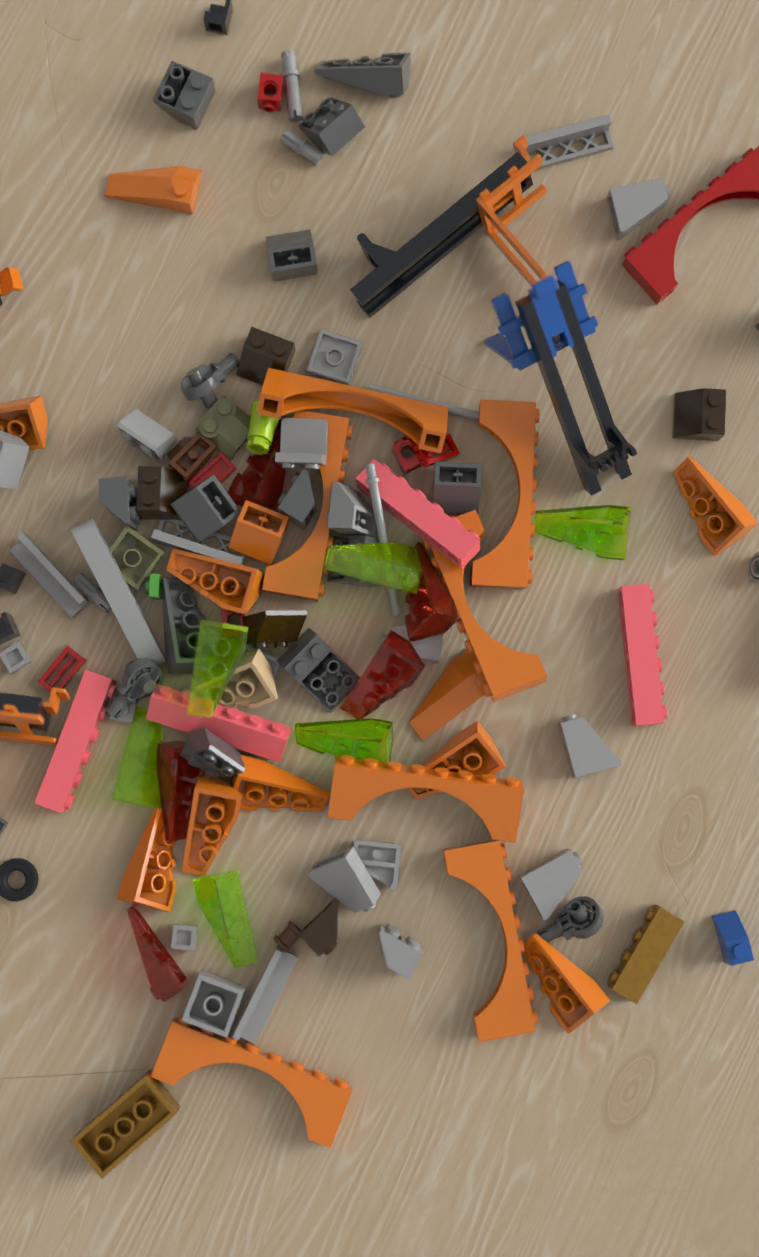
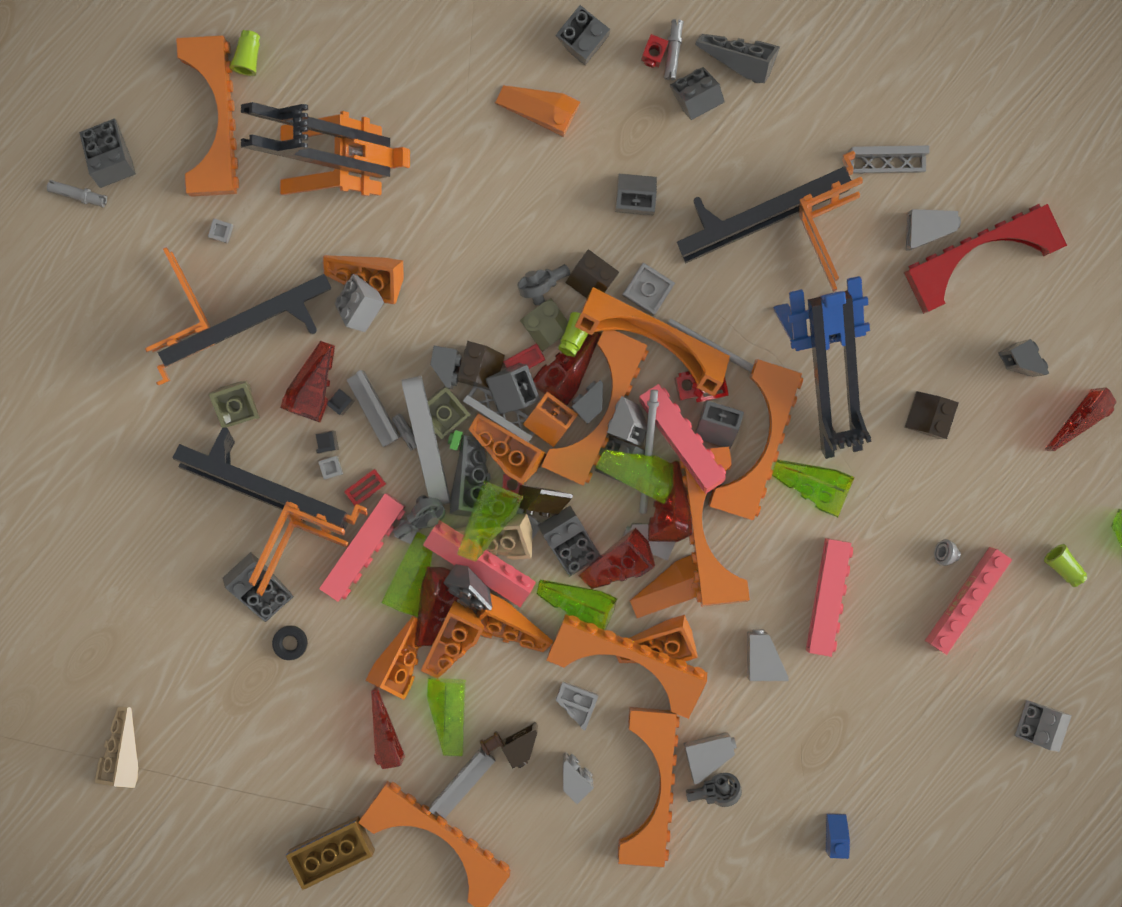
camera: 25 degrees right, 5 degrees up
(147, 434) = (481, 314): light grey slope -> none
(184, 937) = (410, 722): light grey plate -> none
(191, 455) = (511, 339): reddish brown slope -> none
(214, 1003) = (421, 780): light grey brick -> none
(302, 147) = (668, 104): light grey axle -> none
(303, 443) = (605, 357): light grey bracket -> none
(346, 880) = (548, 712): light grey slope -> none
(569, 989) = (699, 842): orange wedge -> none
(645, 953) = (766, 829): pearl gold brick -> none
(717, 512) = (922, 497): orange wedge -> none

